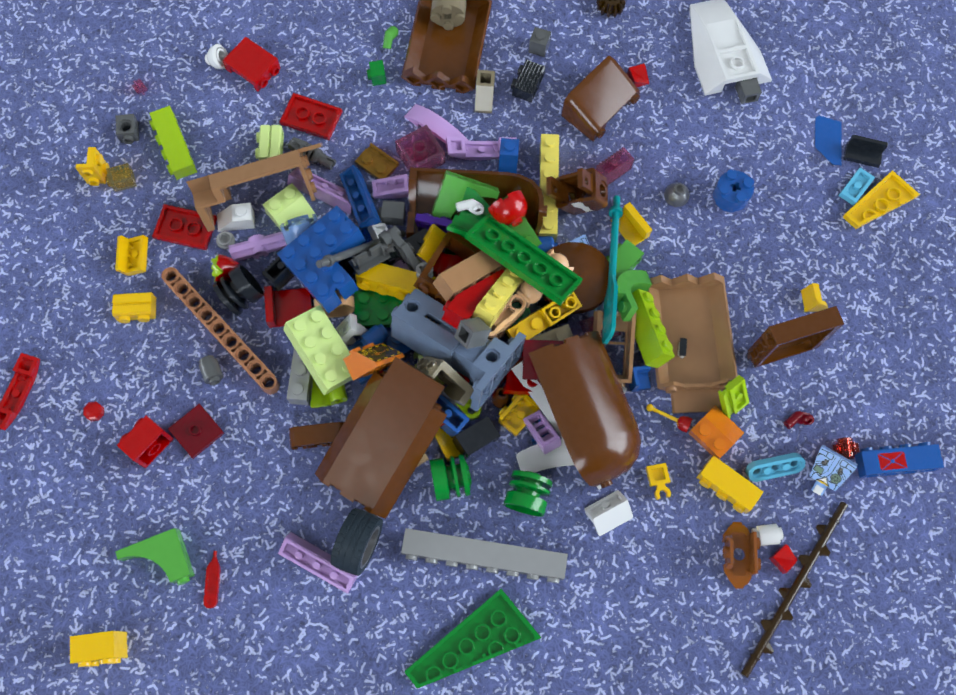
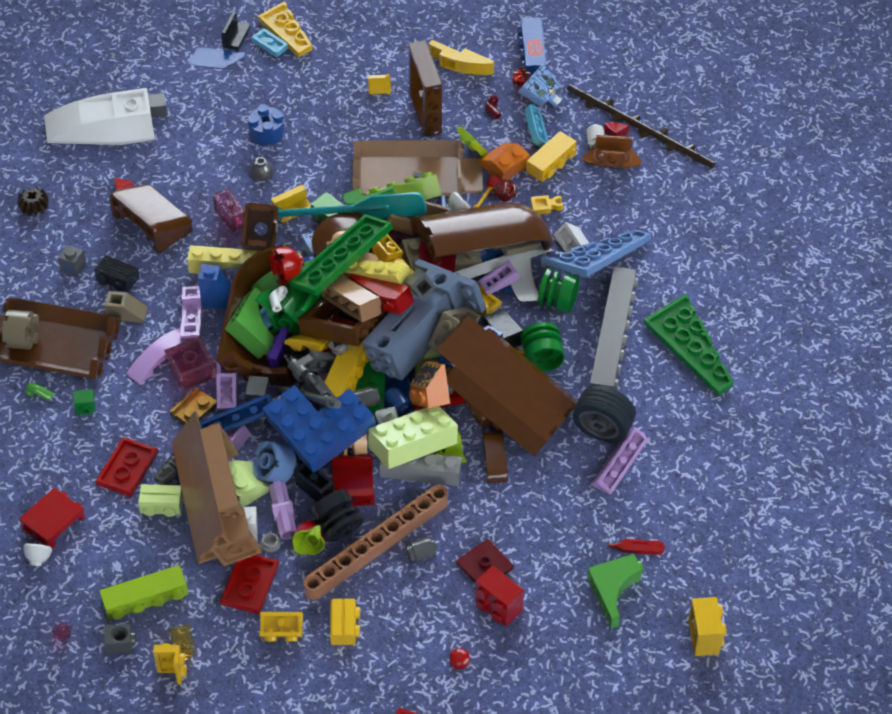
camera: 85 degrees left, 20 degrees down
(369, 303) = (368, 396): none -> dark grey brick
(579, 534) = (593, 257): none -> medium blue wing
(631, 381) = (456, 203): none -> white brick
(672, 435) = (505, 190): none -> clear red gear
(861, 383) = (463, 62): none -> yellow slope

